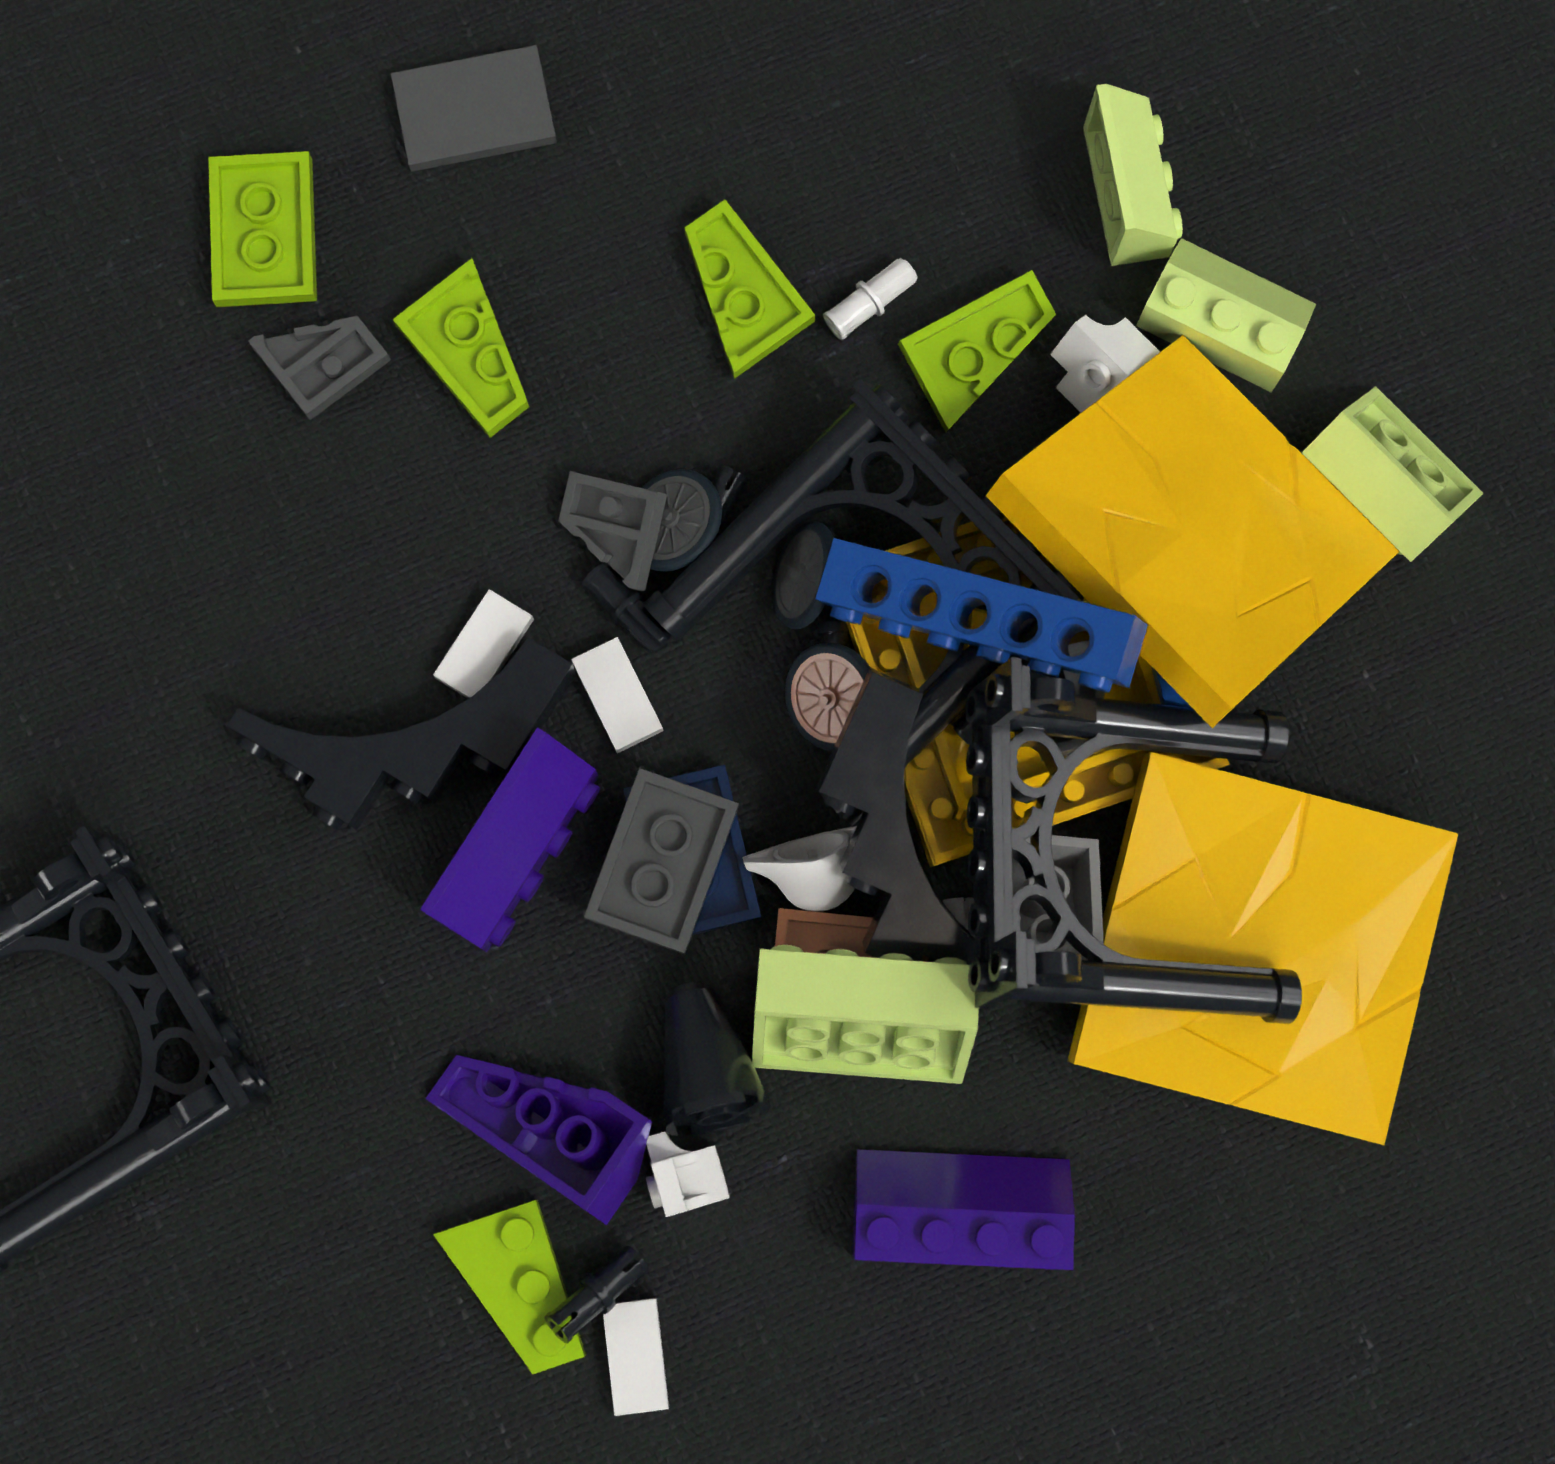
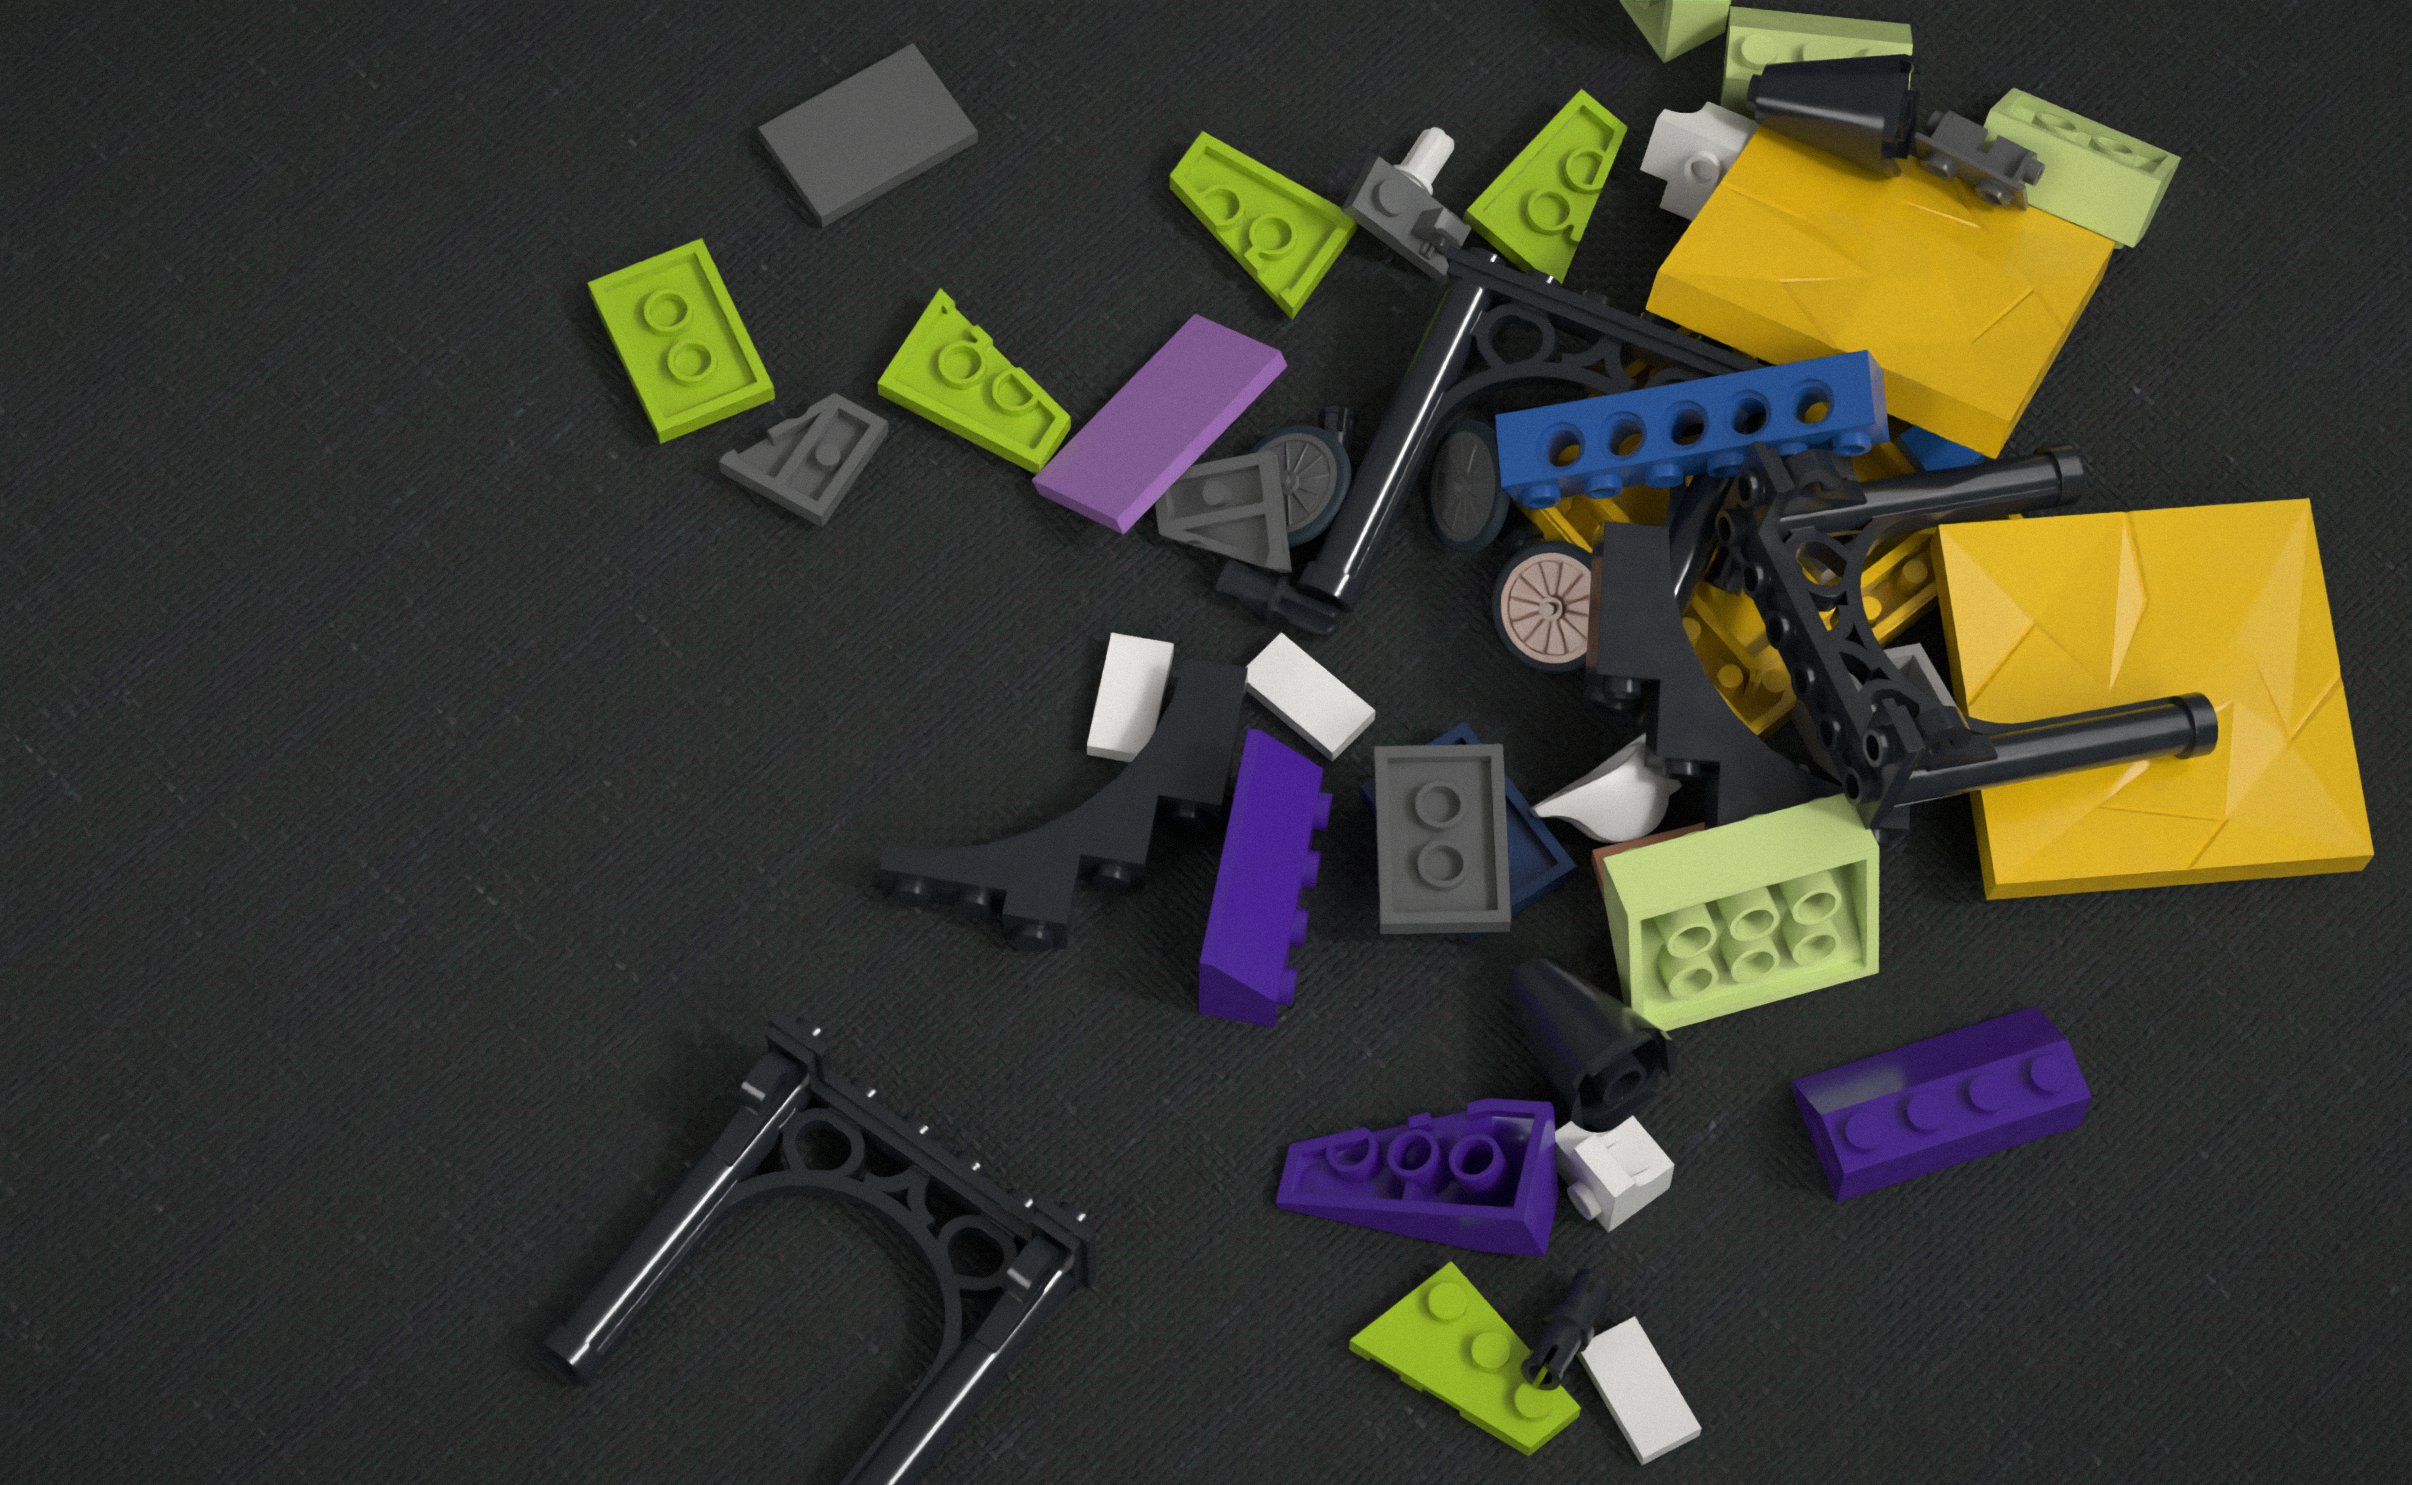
camera: 20 degrees left, 15 degrees down
(593, 431) = (1159, 423): none -> medium lavender tile
(850, 329) = (1405, 217): none -> dark grey hinge
(1224, 367) = (1842, 106): none -> black cone
(1301, 434) = (1956, 152): none -> dark grey hinge

